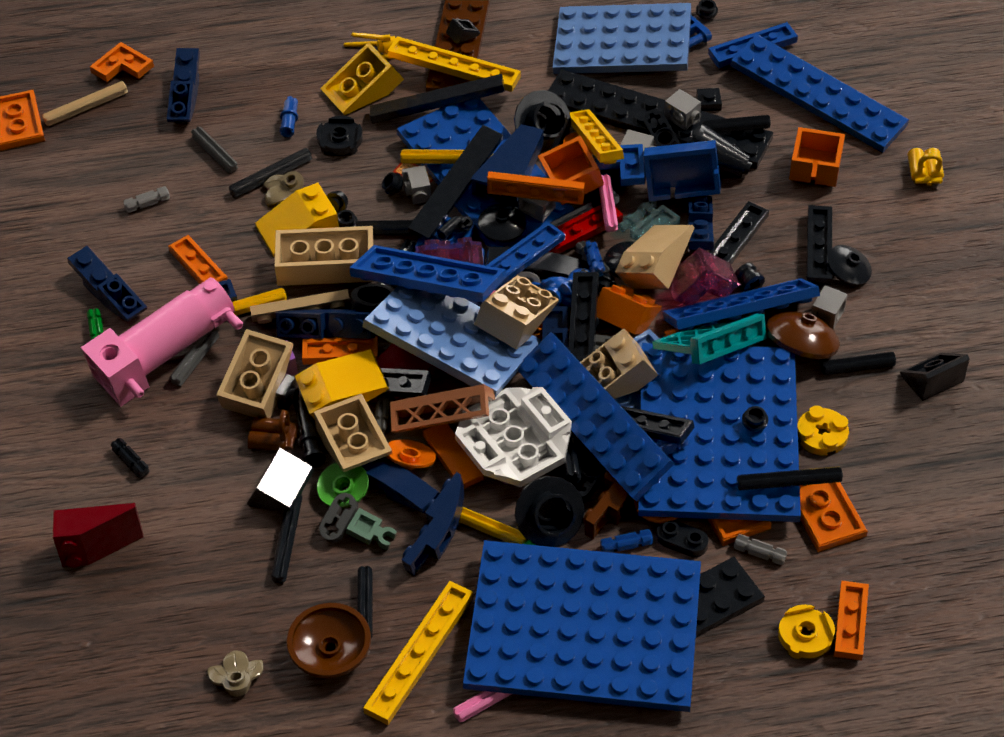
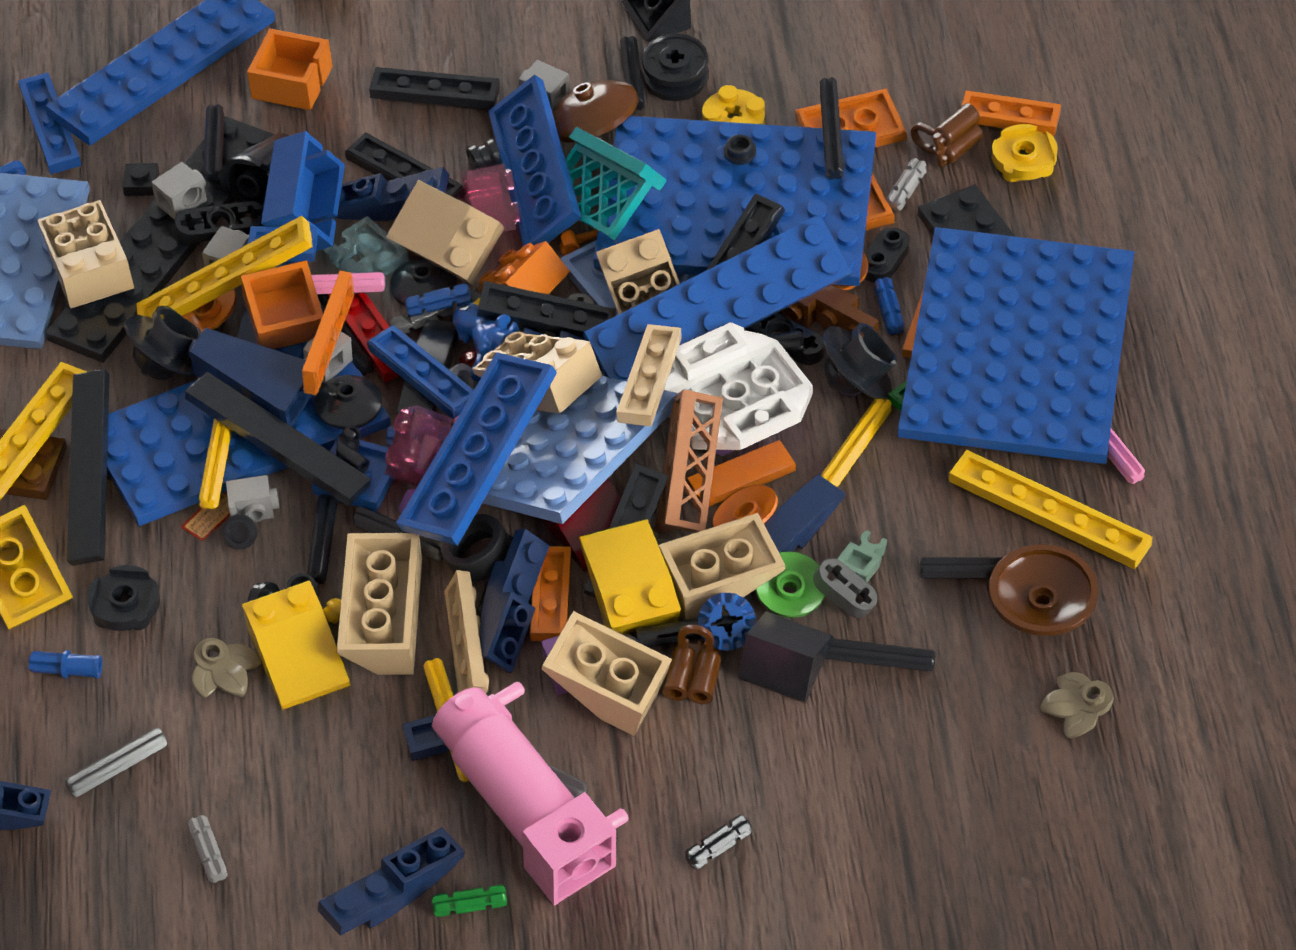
camera: 85 degrees left, 0 degrees up
(94, 532) = (872, 863): dark red slope -> none
(195, 260) = (353, 776): orange tile -> none
(277, 168) = (182, 687): black axle -> none
(308, 443) = (735, 606): none -> blue gear
(443, 518) = (860, 469): dark blue slope -> none
(502, 366) = (649, 375): none -> tan plate
(615, 69) = (86, 254): none -> tan slope
(811, 575) = (952, 136): none -> reddish brown piece
(848, 265) = (474, 63): black dish -> none
(865, 387) = (675, 67): none -> black wheel

